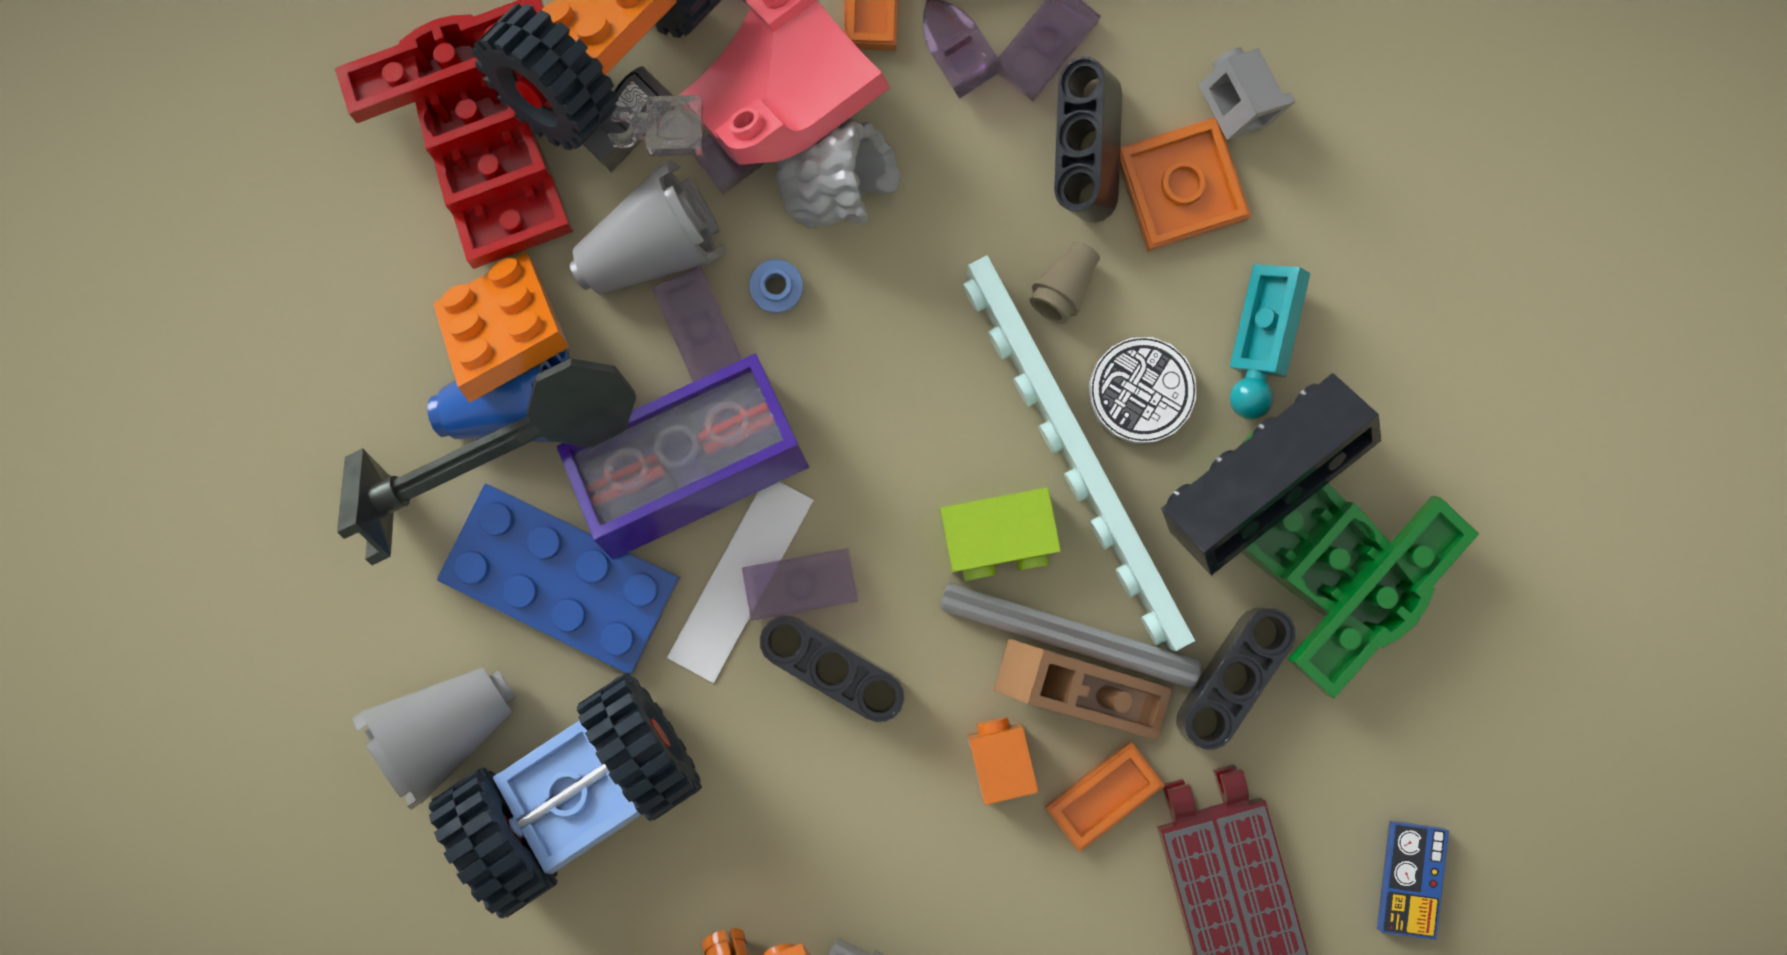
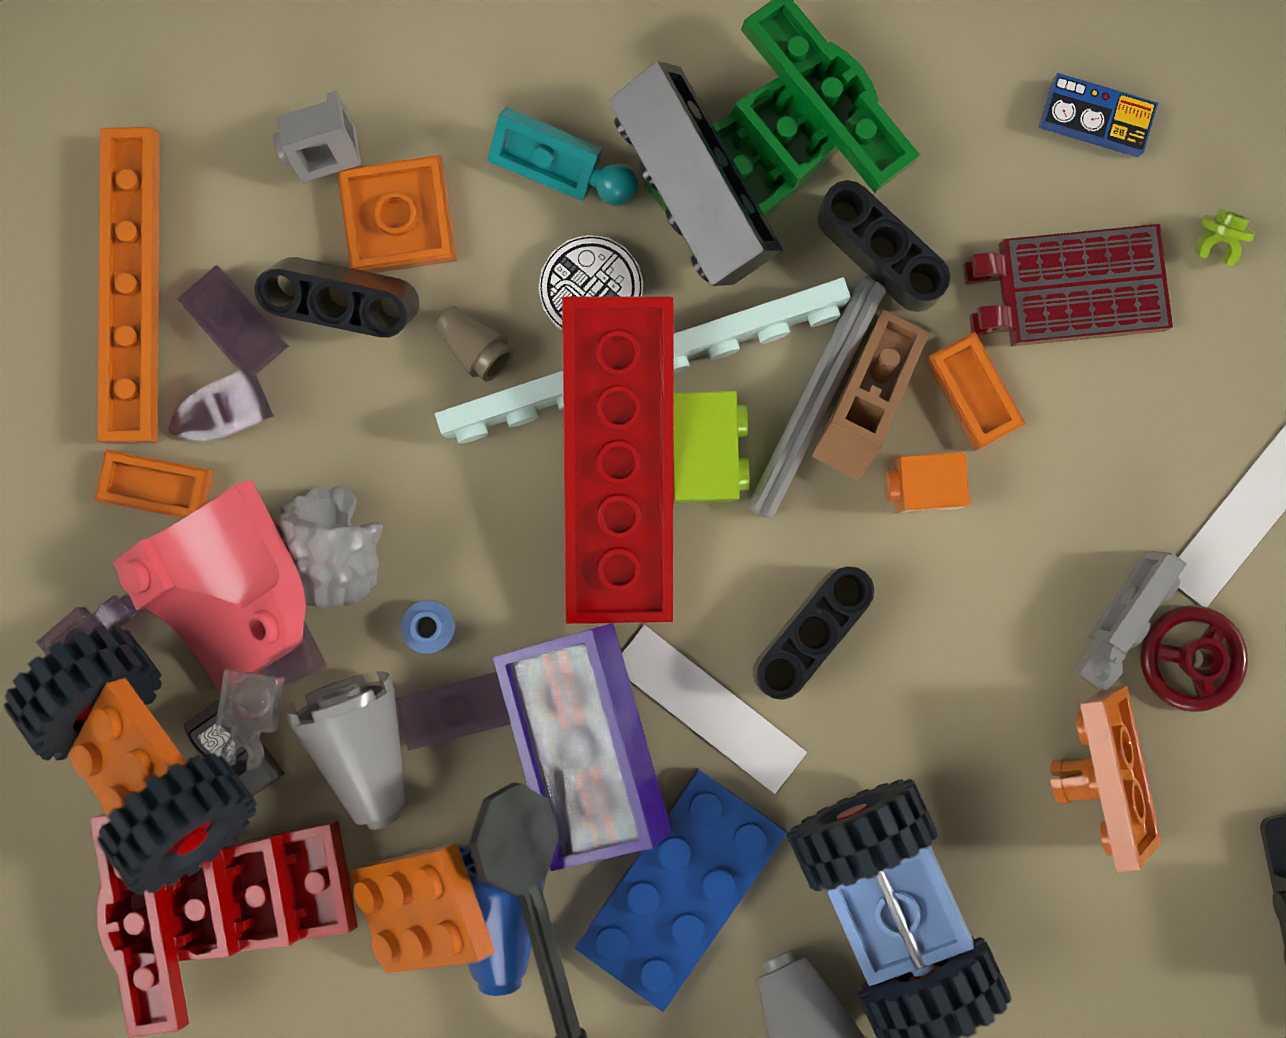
camera: 75 degrees left, 0 degrees up
(799, 584) = (725, 651): clear purple plate -> none
(973, 444) = (618, 458): none -> red plate

